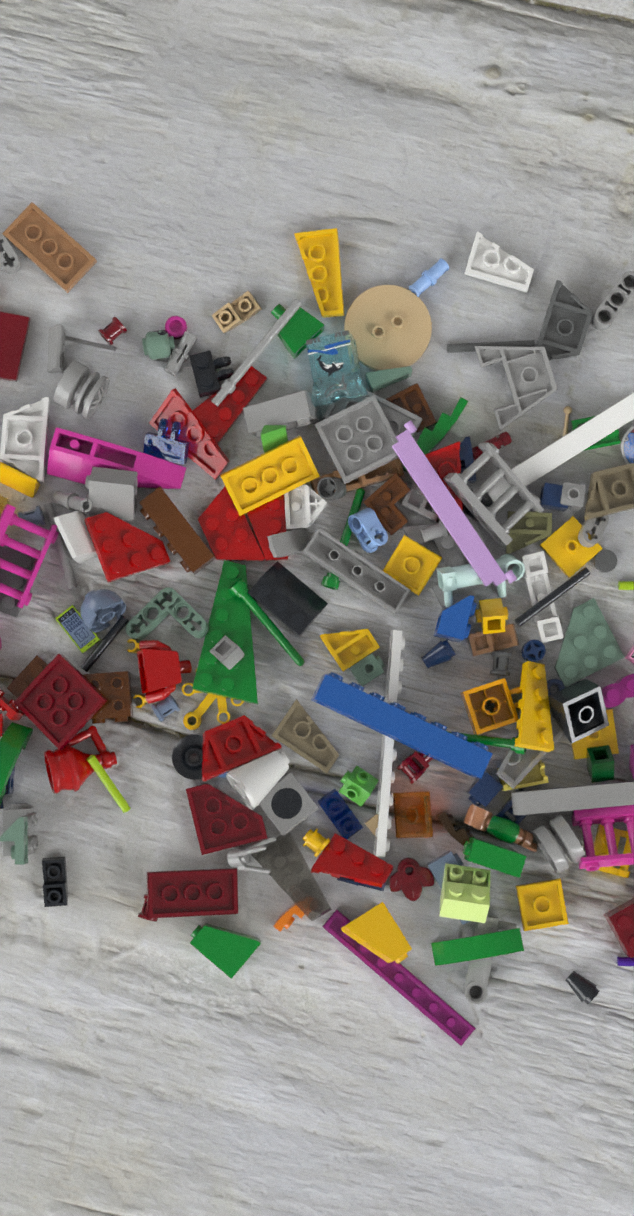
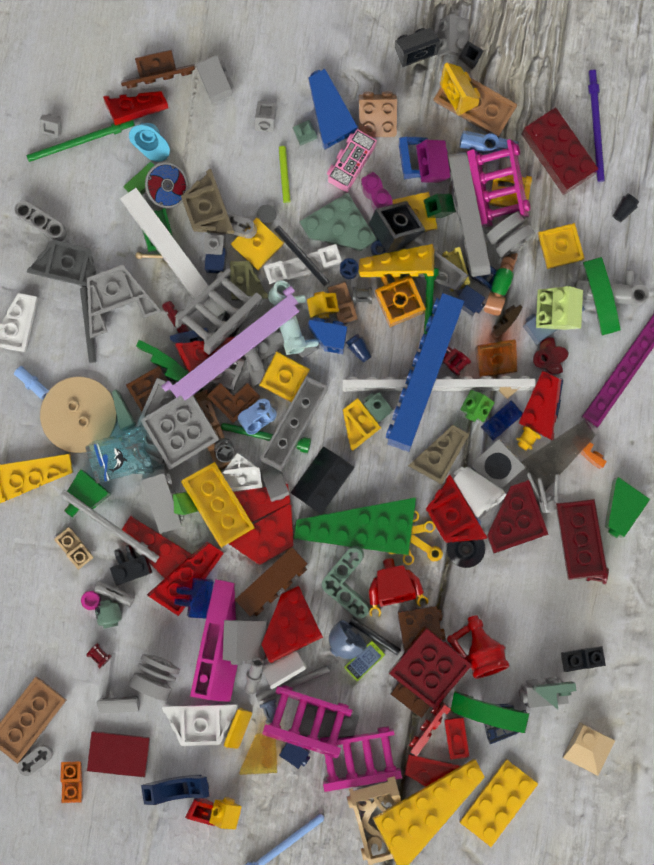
camera: 85 degrees left, 0 degrees up
(108, 783) = (495, 620): lime bar -> none
(165, 707) = (426, 577): sand blue bush -> none
(227, 652) = (374, 527): light grey slope -> none
(240, 590) = (318, 522): green piece -> none
(379, 934) = (599, 378): yellow slope -> none
(494, 857) = (527, 286): green slope -> none

